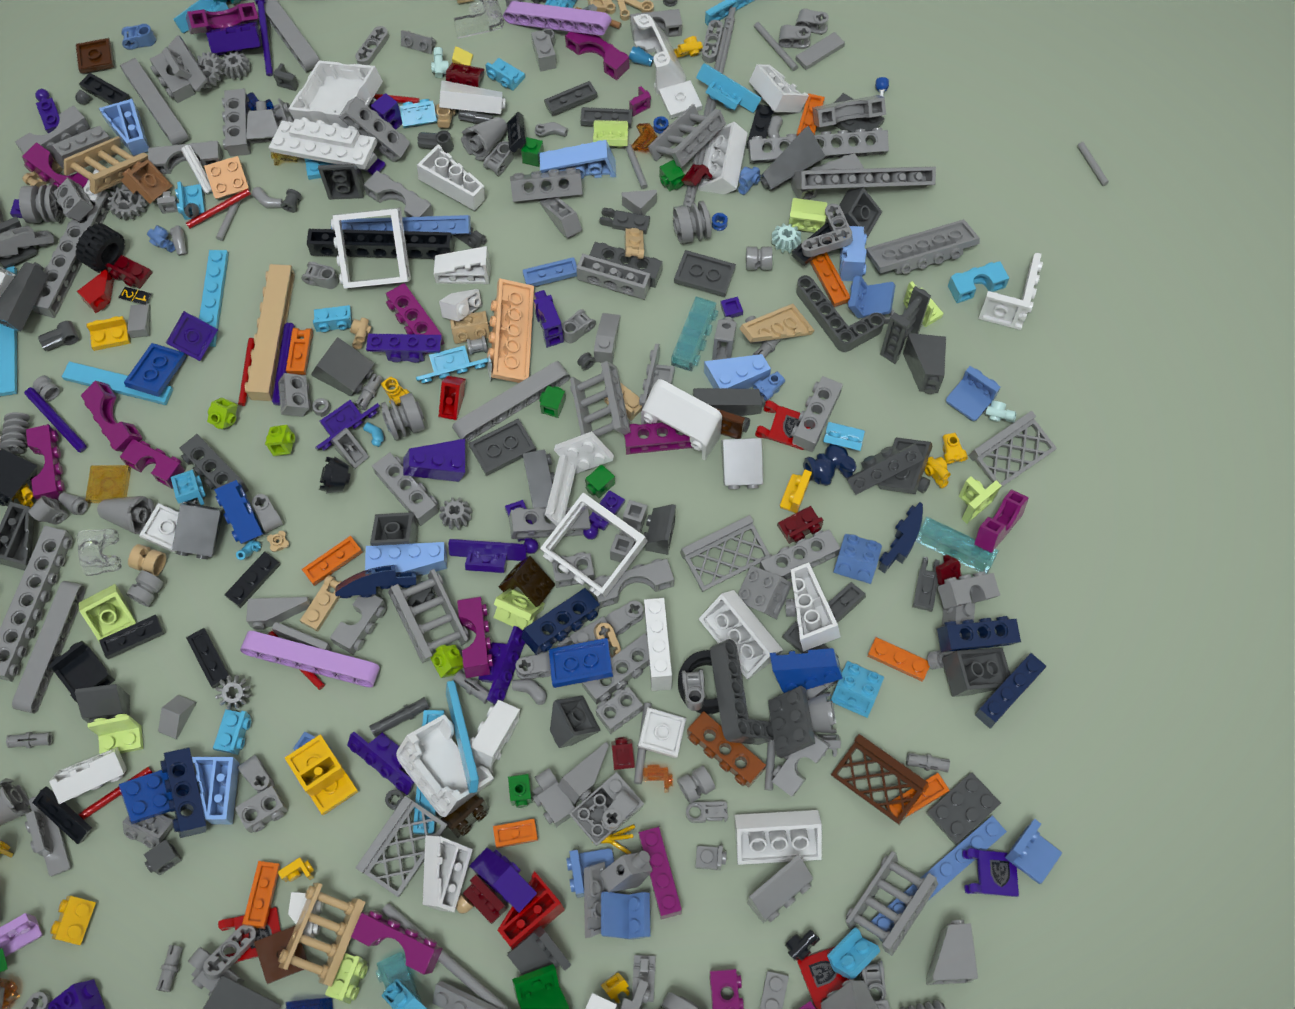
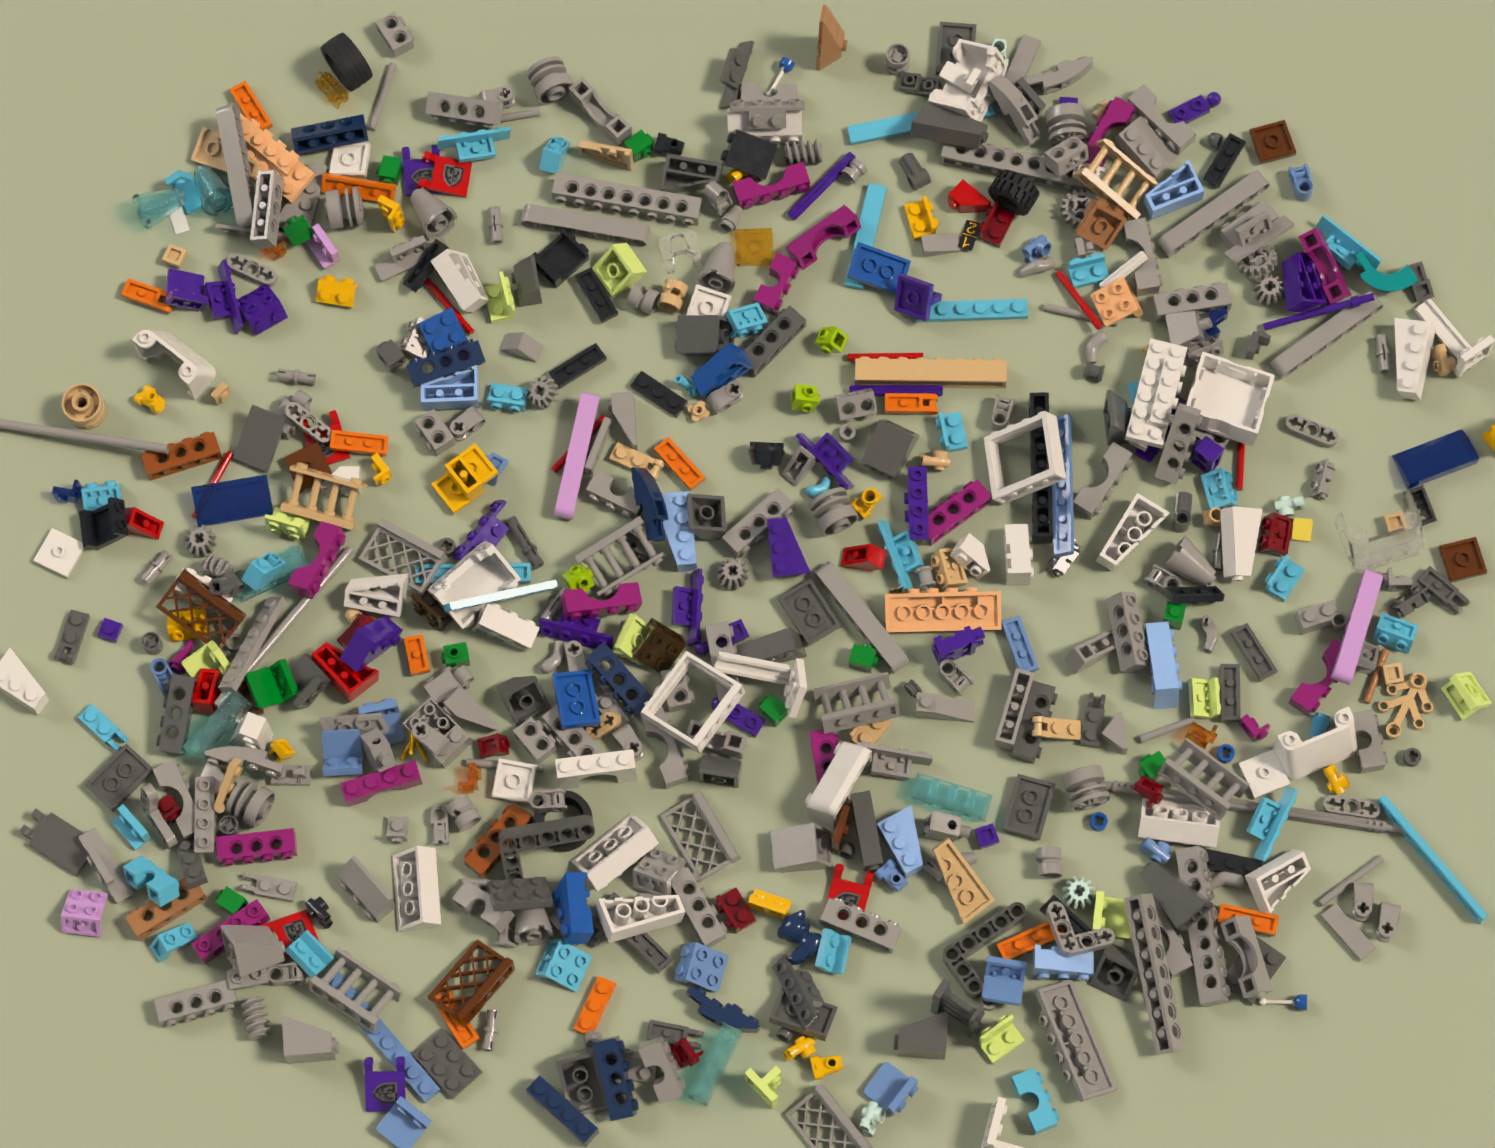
camera: 90 degrees right, 5 degrees up
(195, 210) = (1071, 276): dark grey hinge -> none
(368, 391) = (867, 477): light grey pin -> none
(994, 530) = (721, 1092): magenta arch -> none

